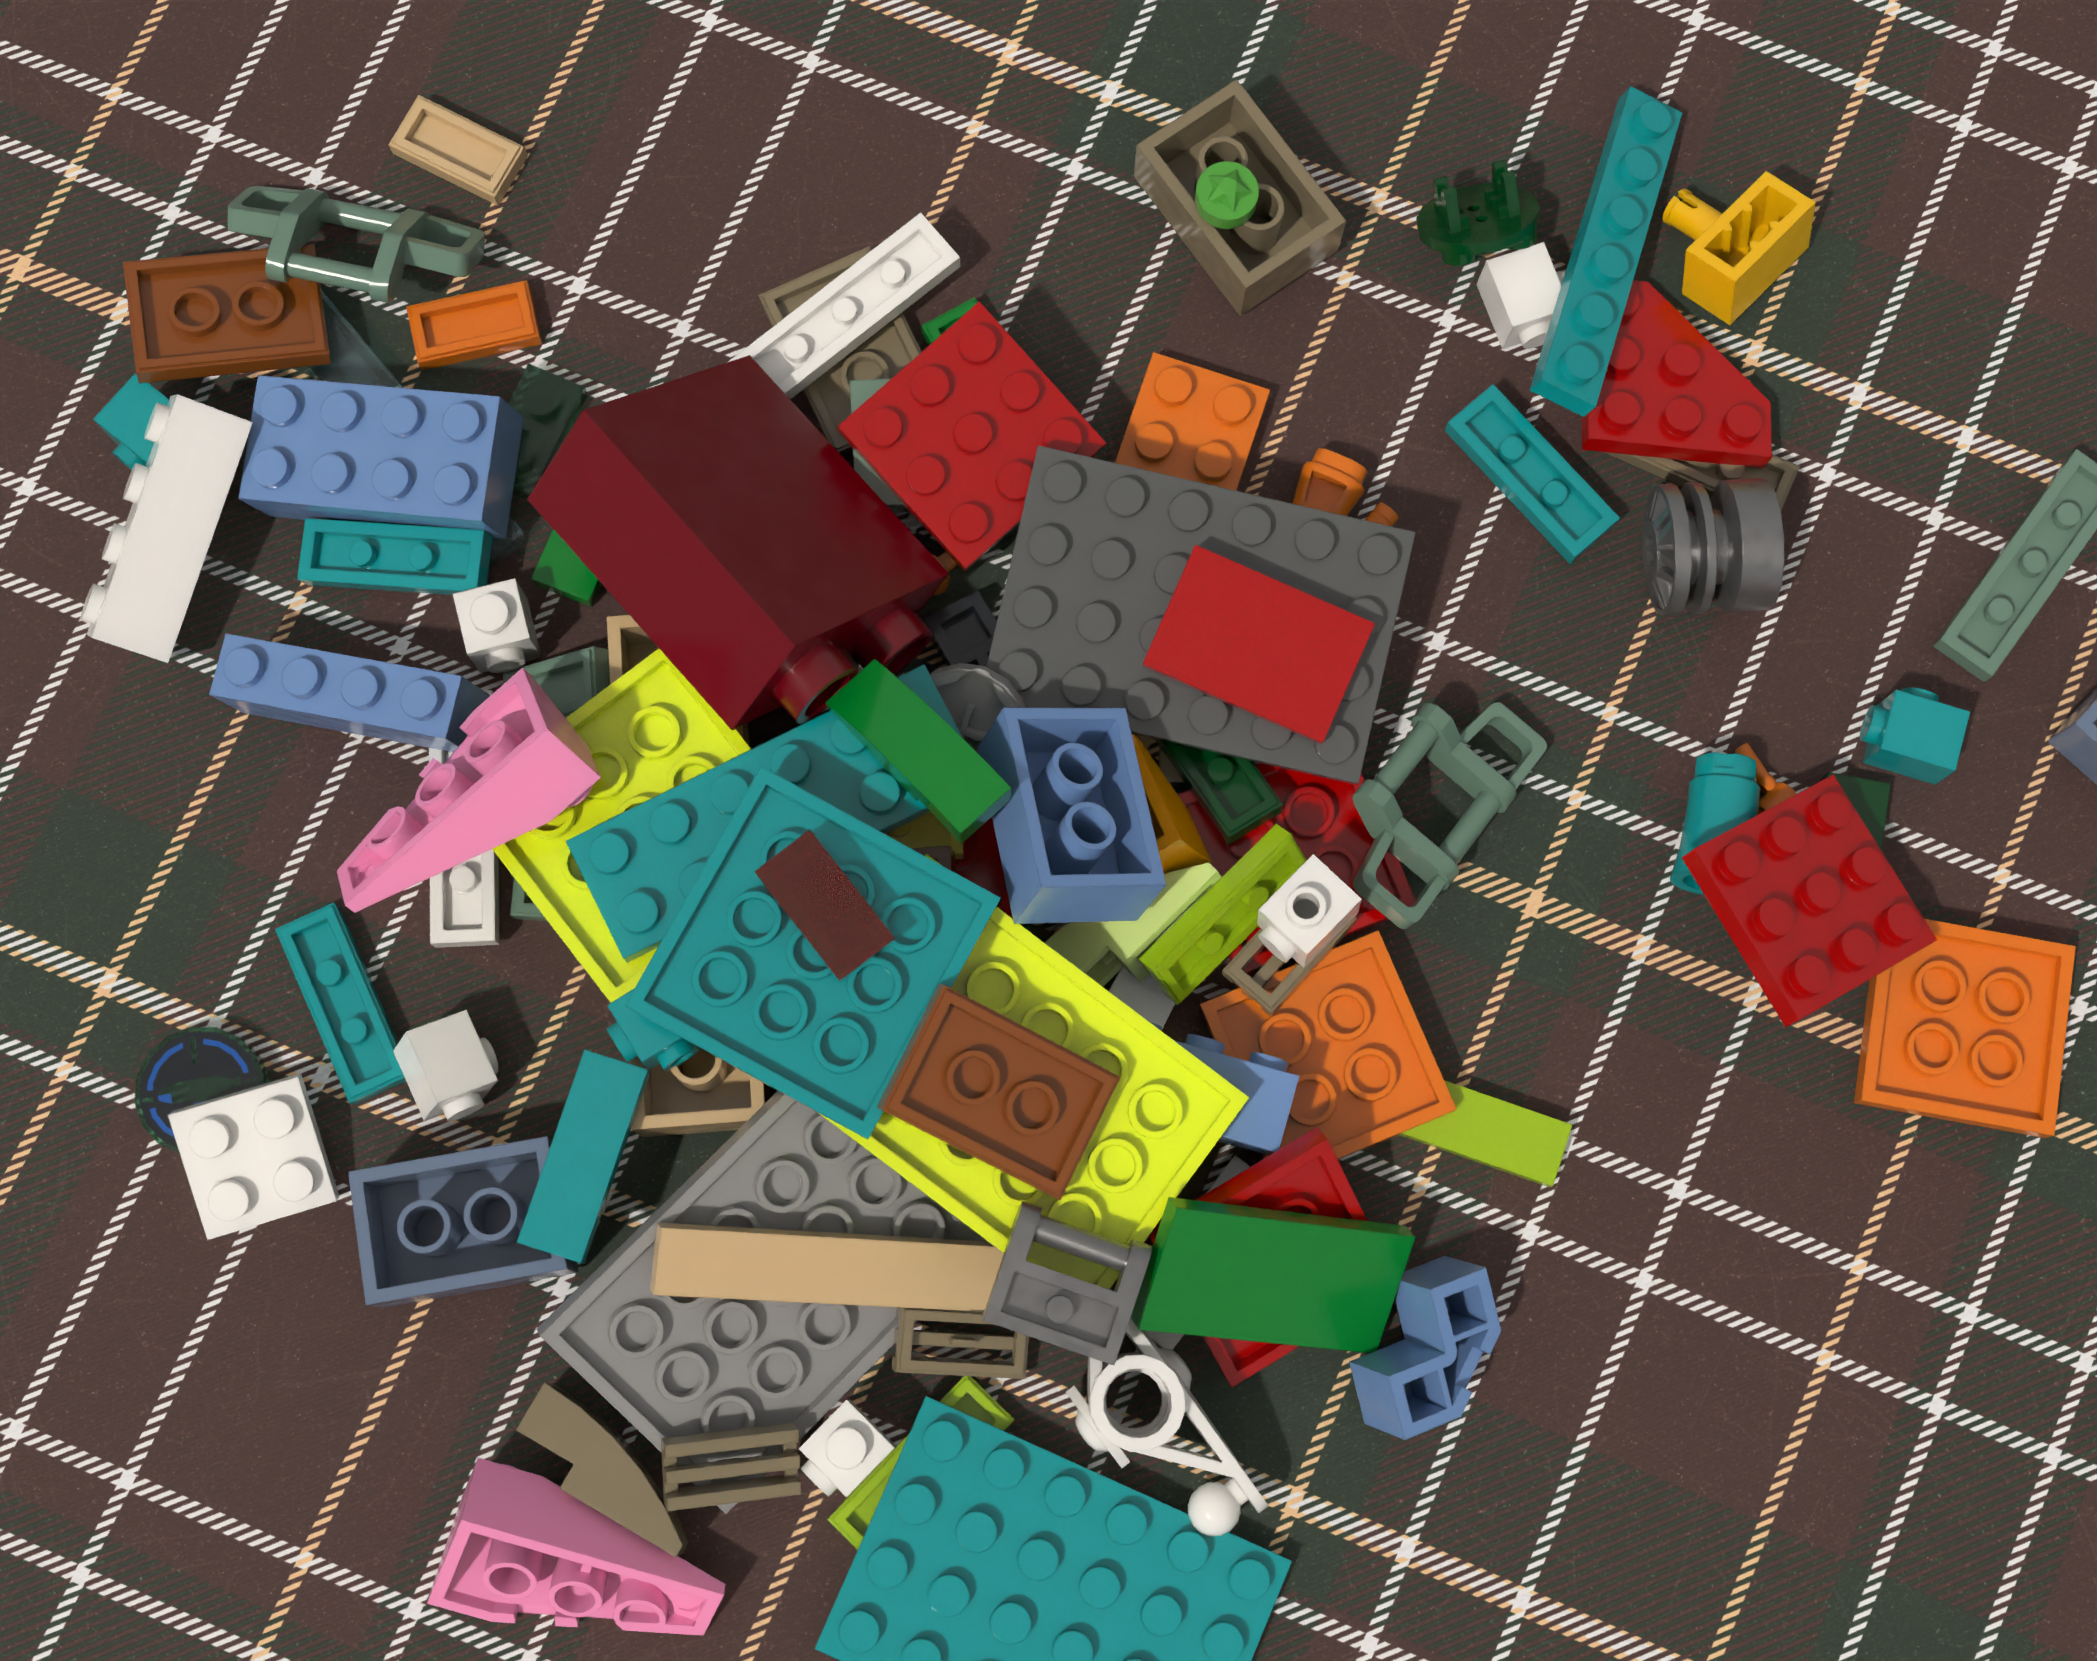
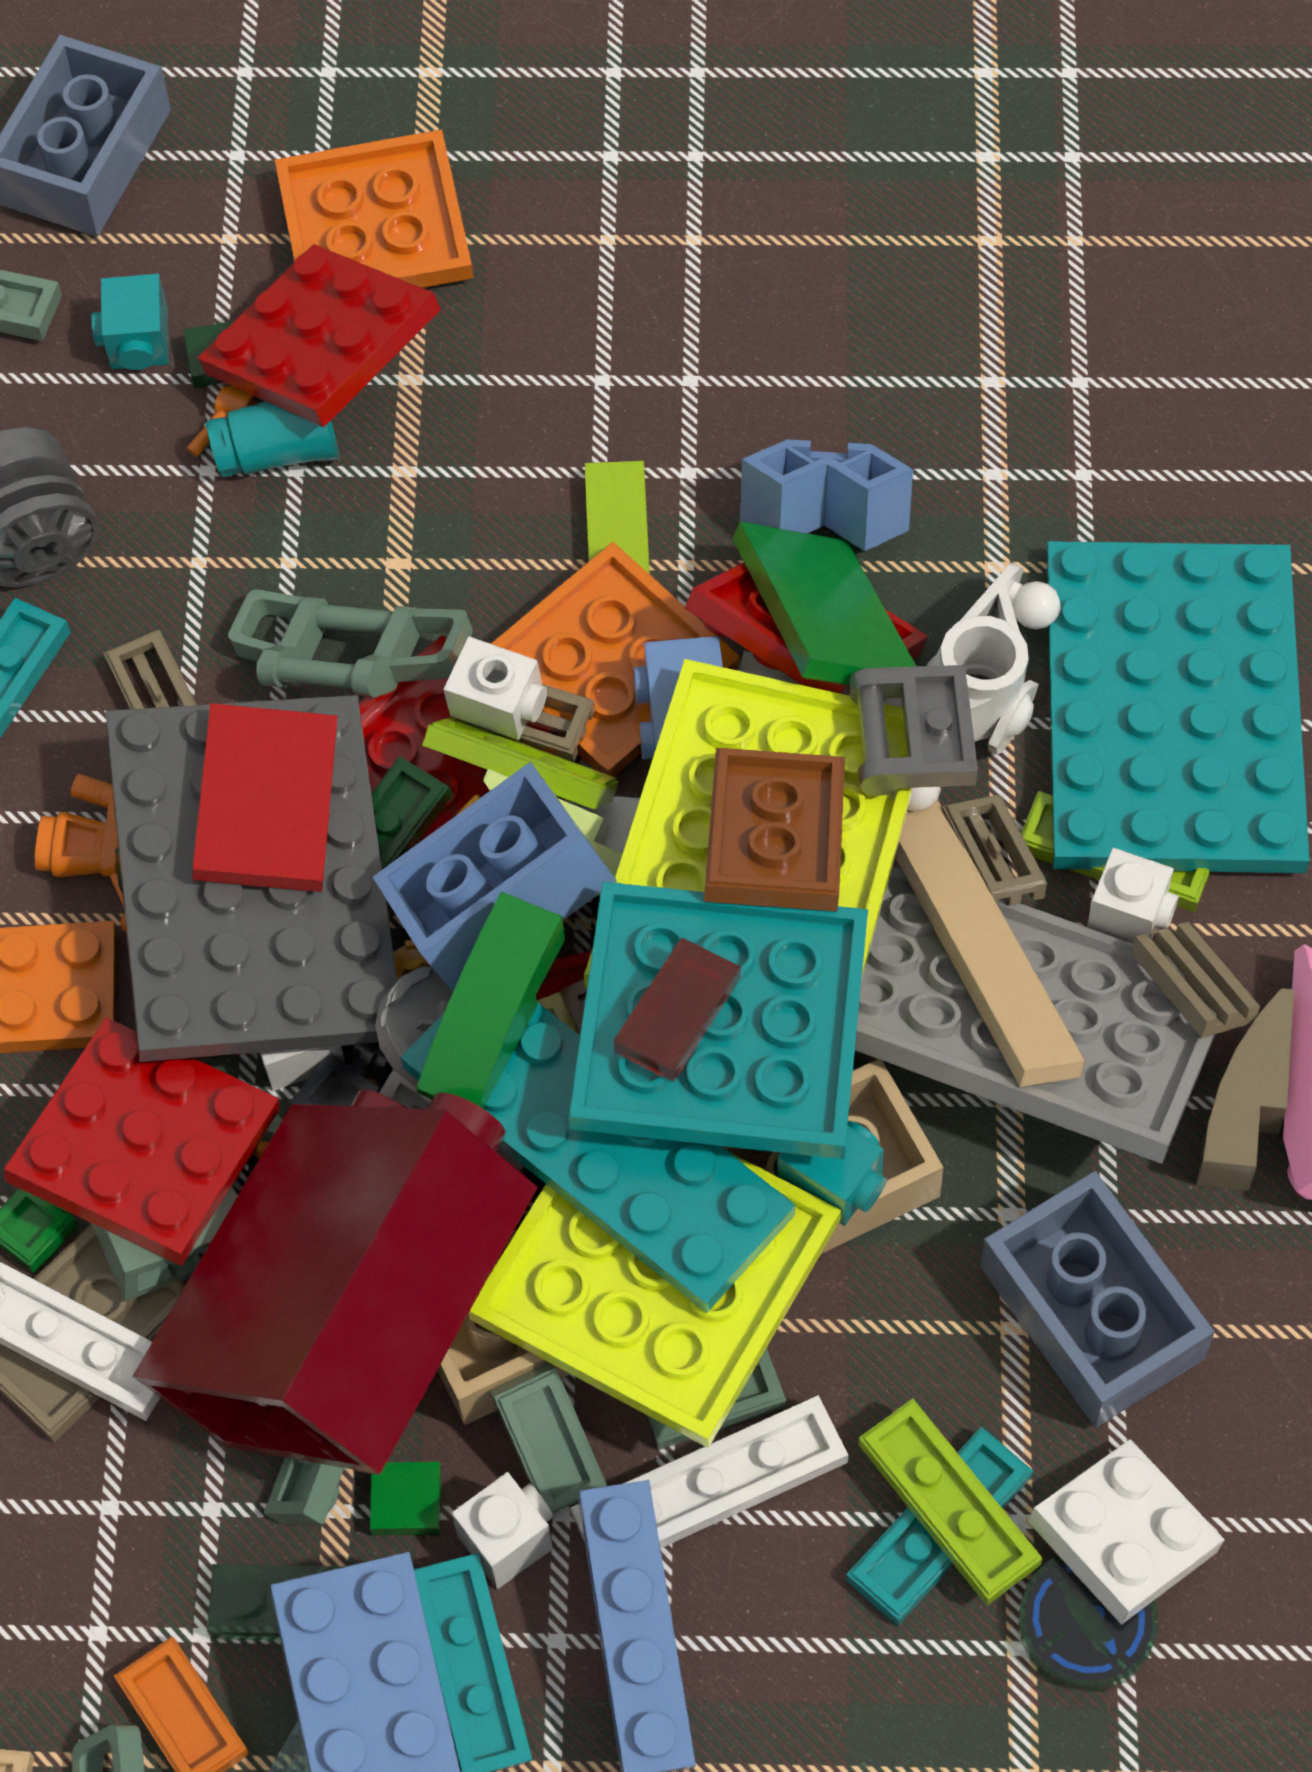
camera: 105 degrees left, 15 degrees down
(347, 1013) = (950, 1501): none -> lime tile
(447, 1067) = (960, 1383): white brick -> none
(500, 782) = (689, 1399): bright pink wedge -> none
(584, 1157) = (989, 1190): teal tile -> none
(1466, 645) = (134, 650): none -> dark tan tile

